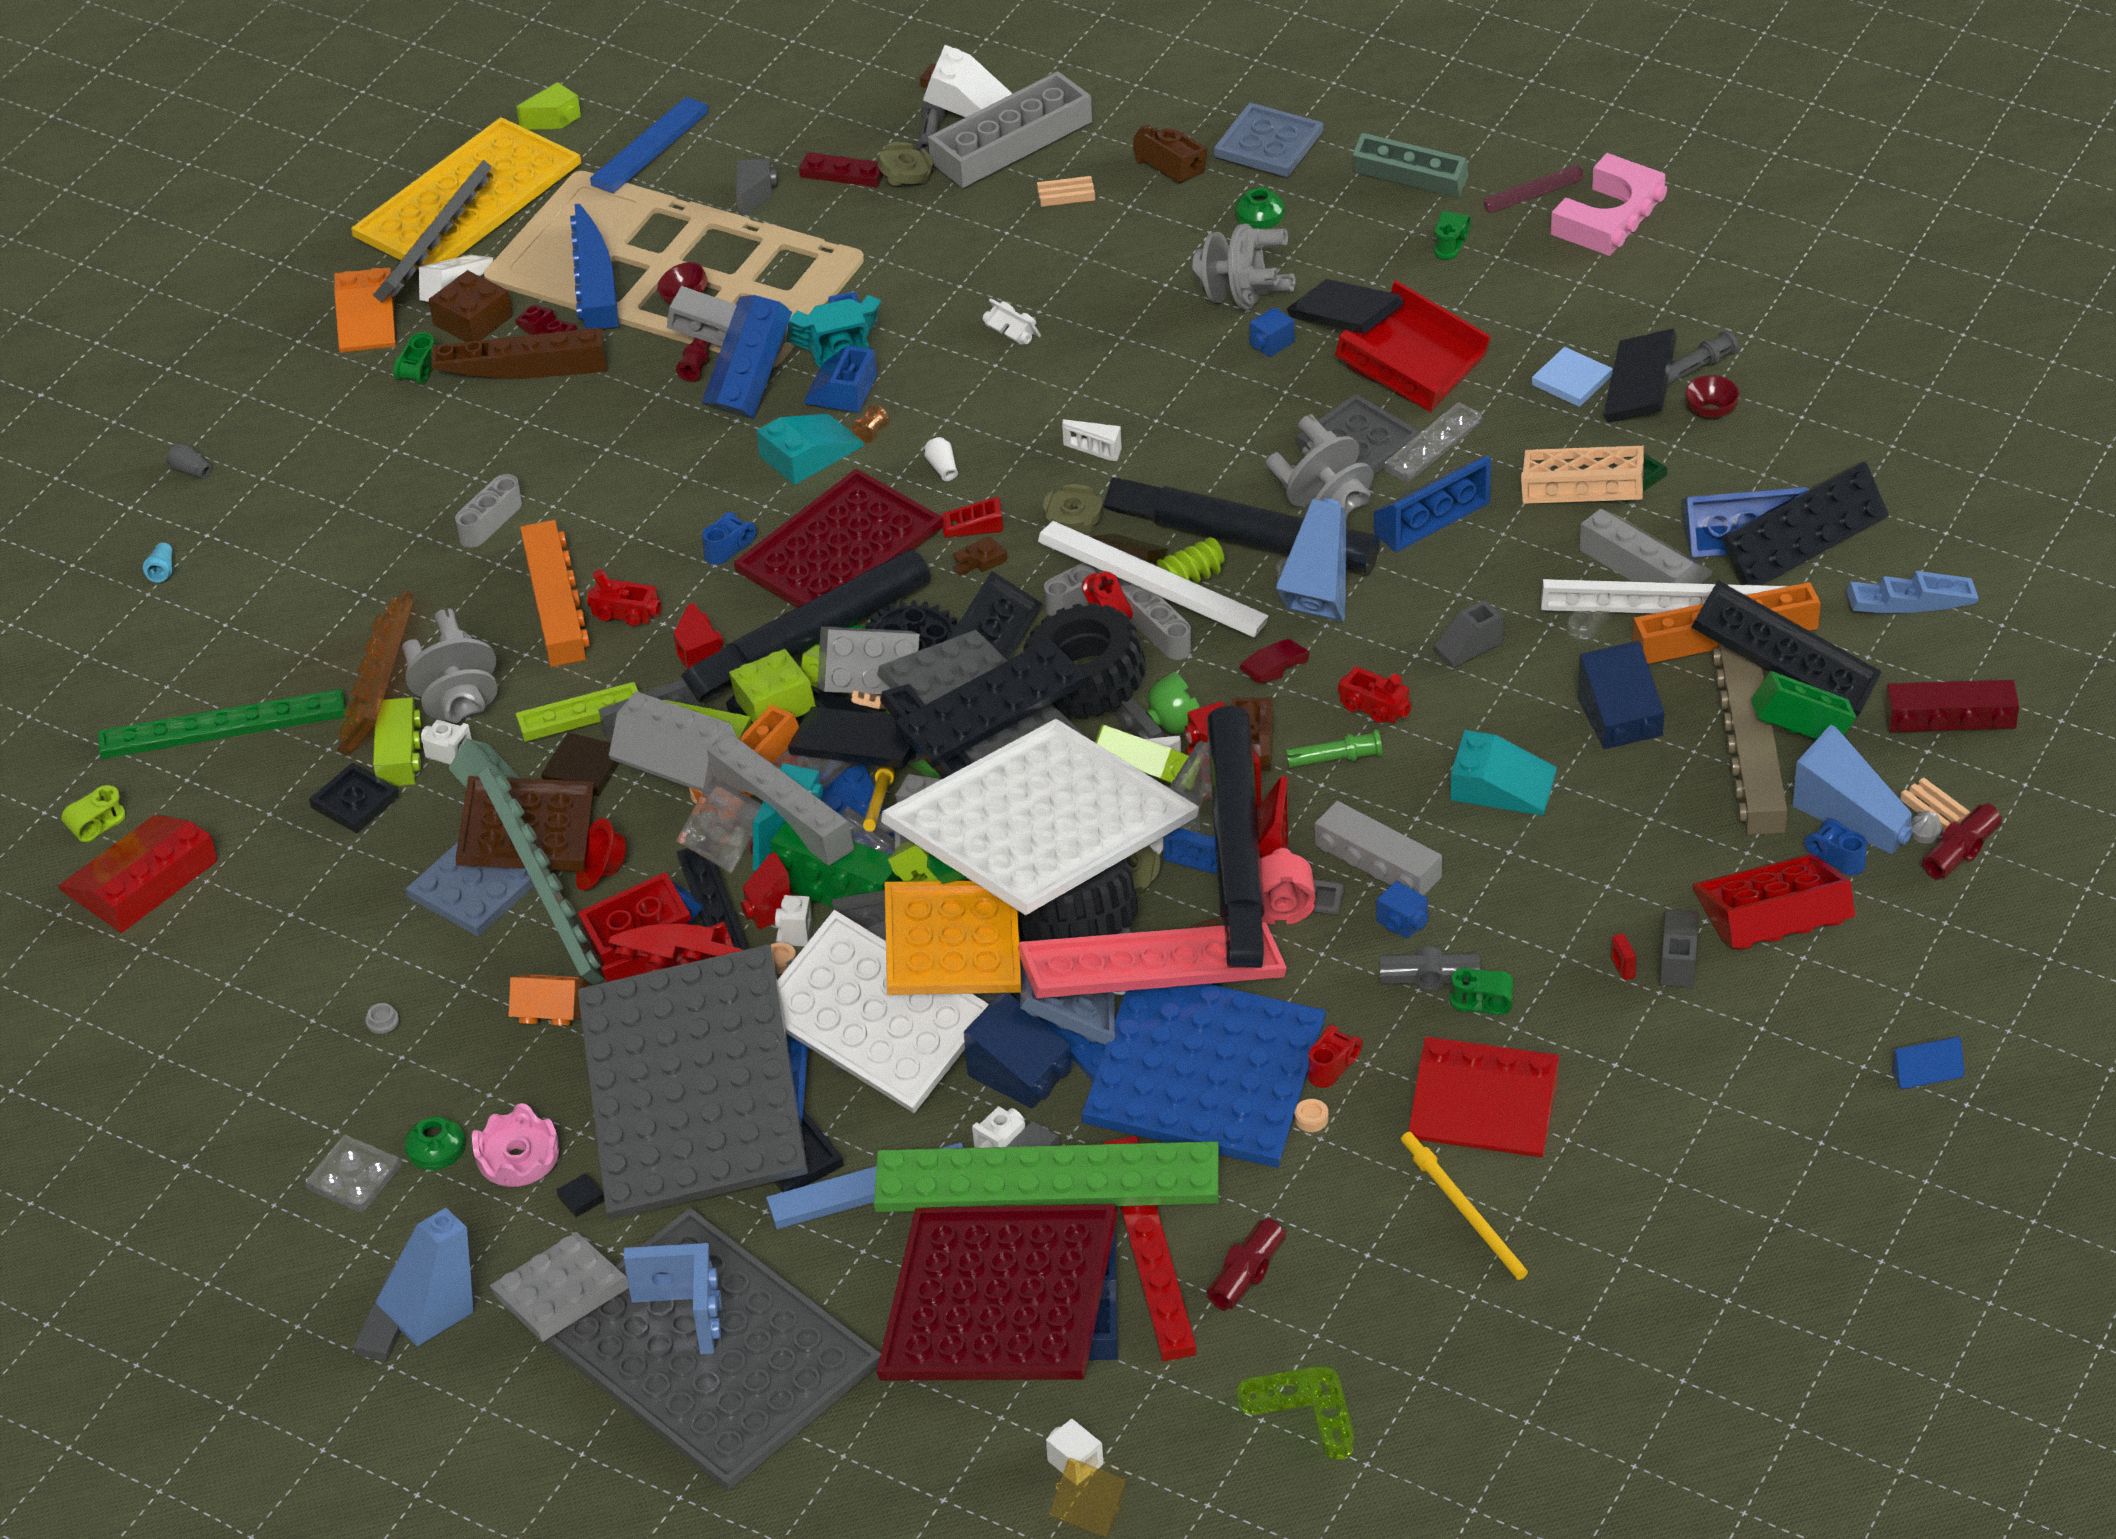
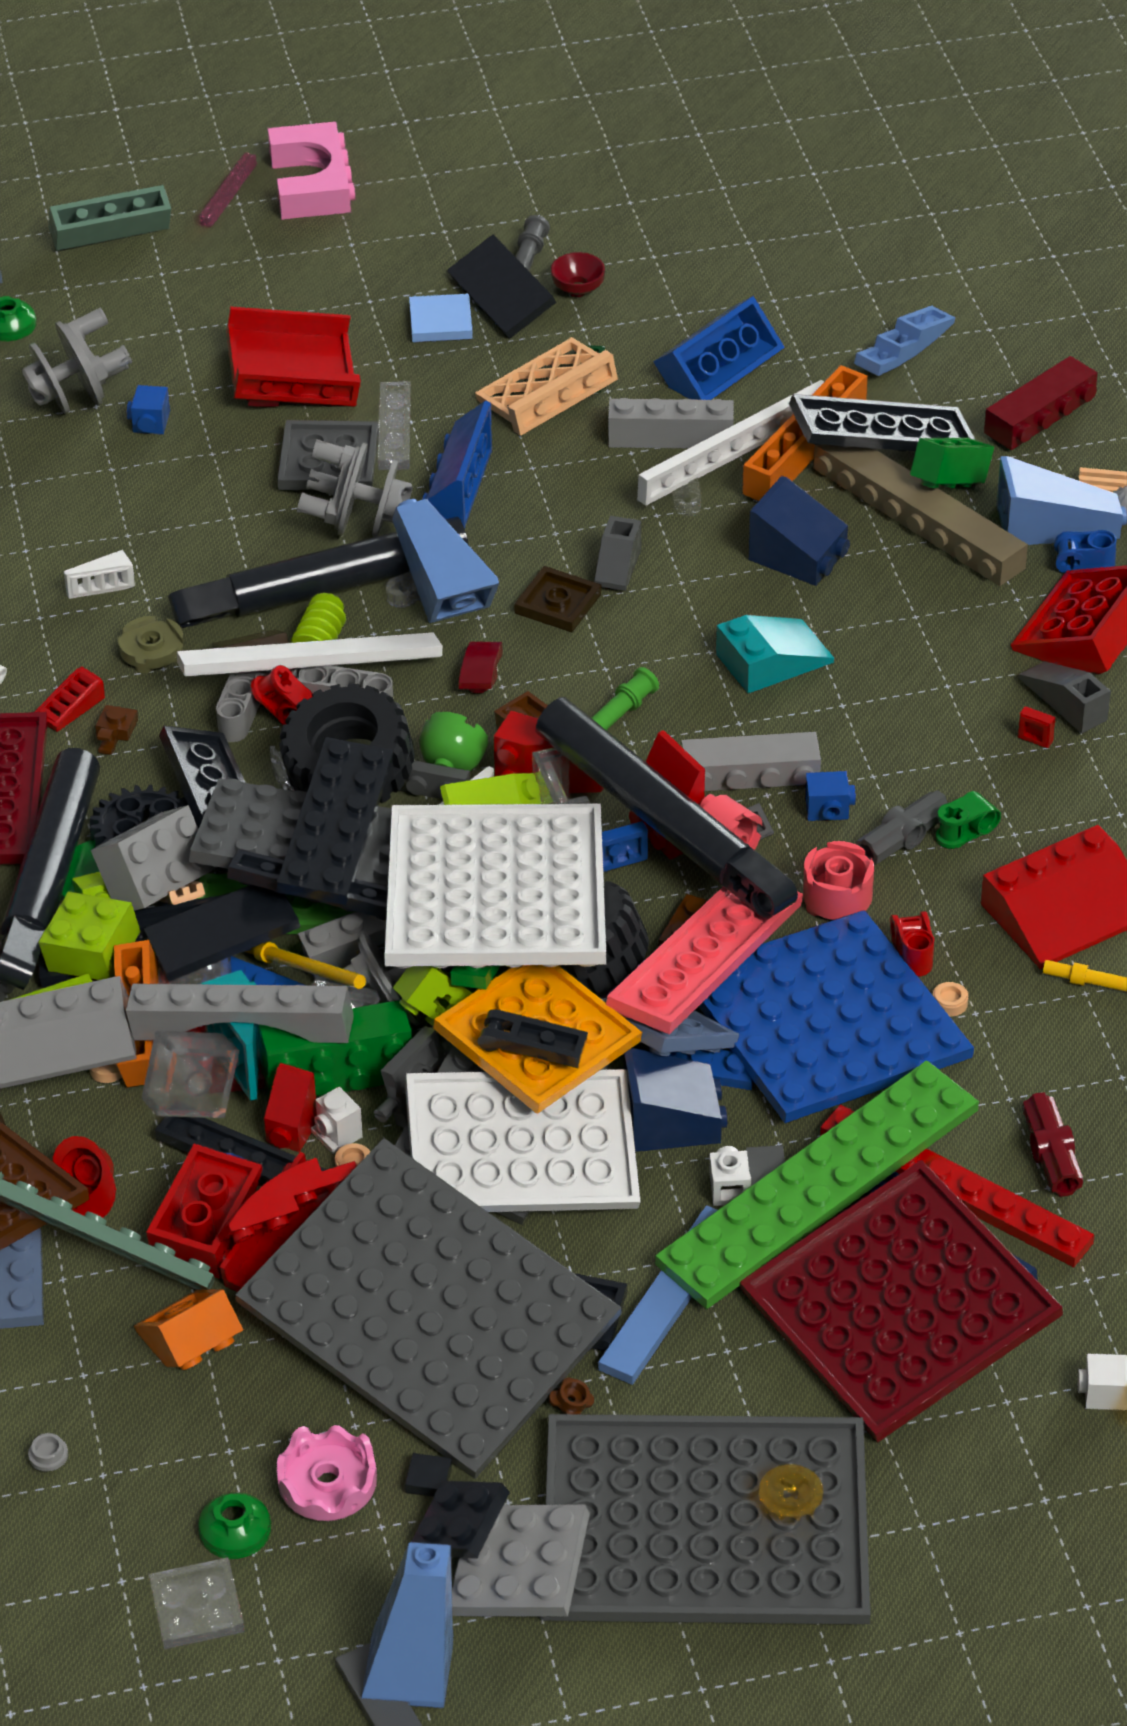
camera: 45 degrees left, 0 degrees up
(553, 1232) = (462, 1516): none -> black plate
(688, 1278) = (658, 1456): medium blue bracket -> none
(721, 1199) = (576, 1390): none -> reddish brown plate
(756, 1359) = (791, 1478): none -> clear yellow gear
(929, 938) = (532, 1038): none -> black plate
(1325, 975) = (837, 880): none -> coral brick
(1345, 306) = (198, 353): black tile -> none
(1375, 695) = (599, 644): red brick -> none
(1395, 644) = (558, 599): none -> dark brown tile
(1450, 234) = (204, 257): green piece -> none
(1805, 525) = (774, 329): black plate -> none

